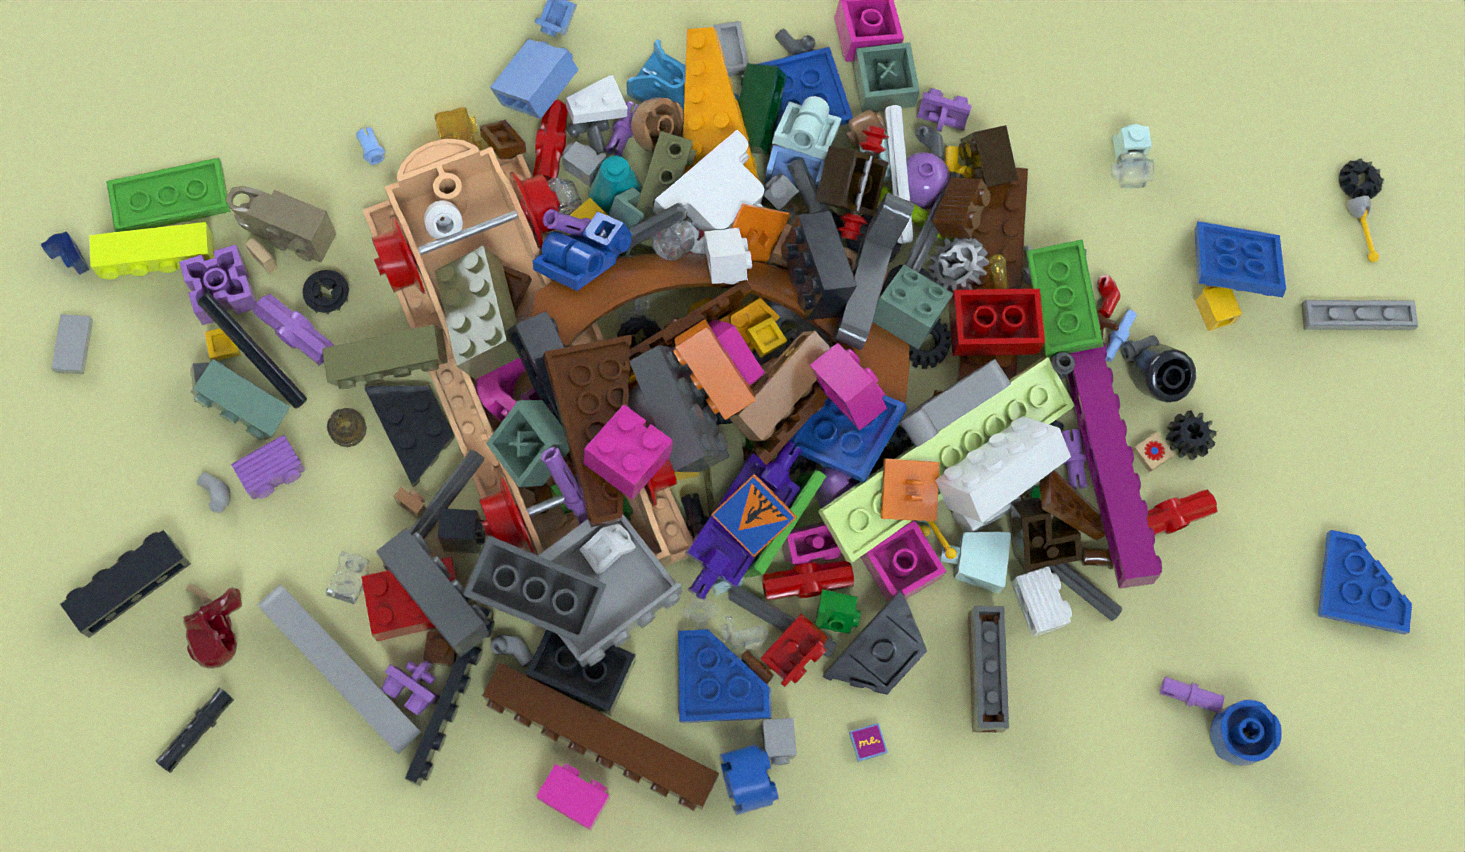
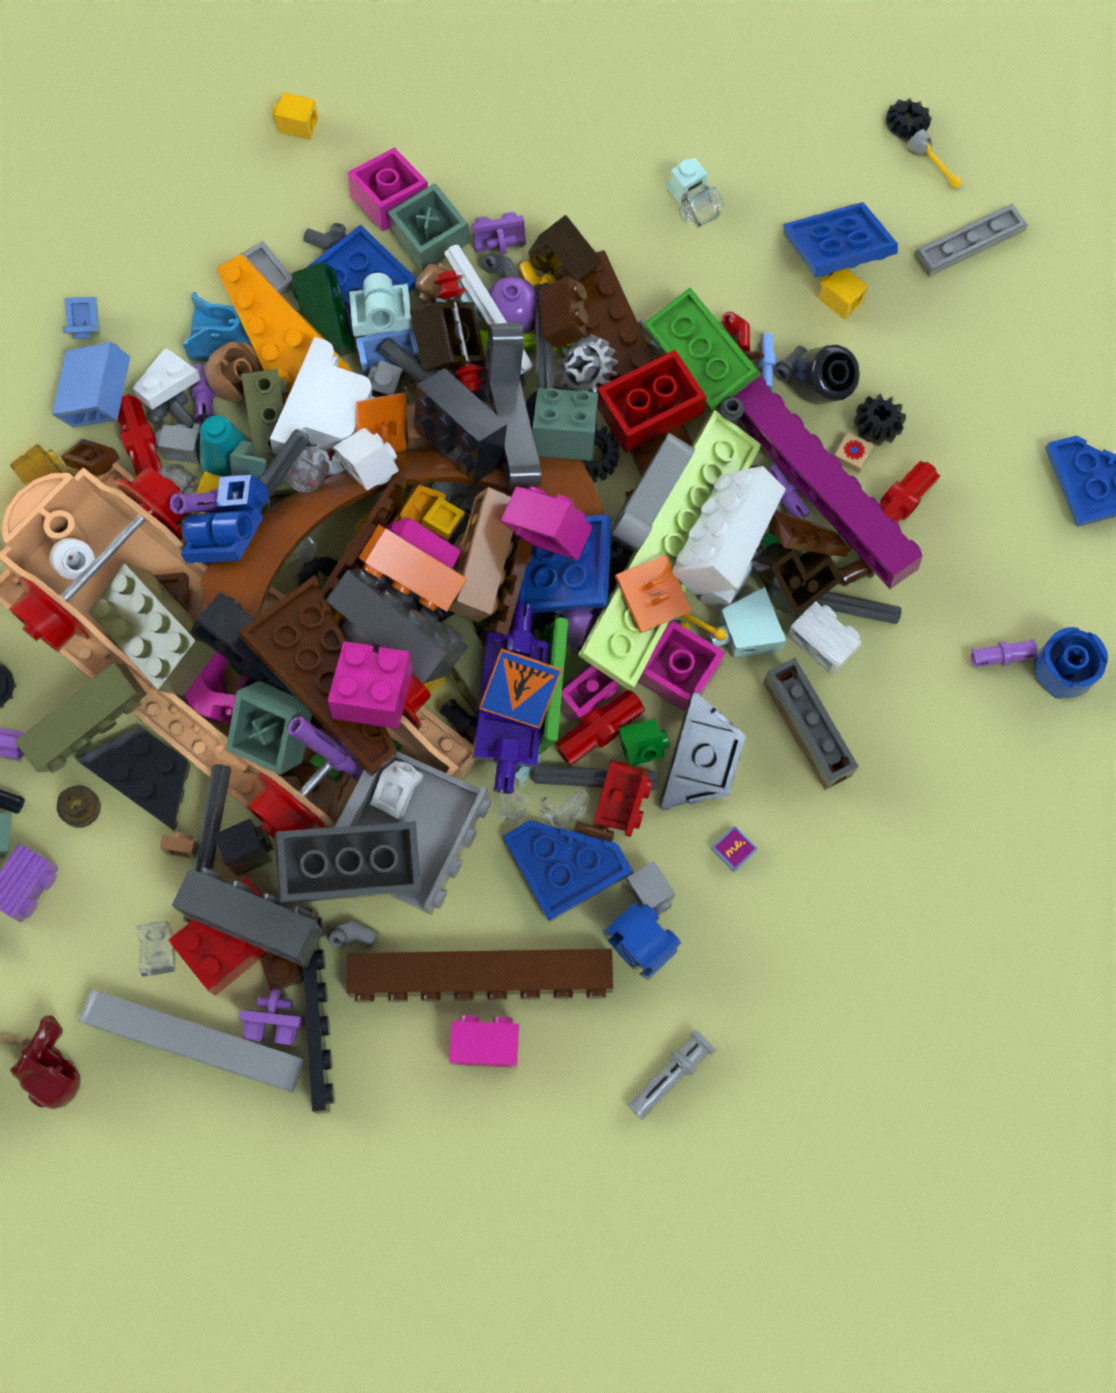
camera: 20 degrees left, 0 degrees up
(190, 735) = (78, 1174): black pin -> none
(591, 685) = (447, 929): black brick -> none
(998, 267) = (627, 353): clear yellow arm -> none

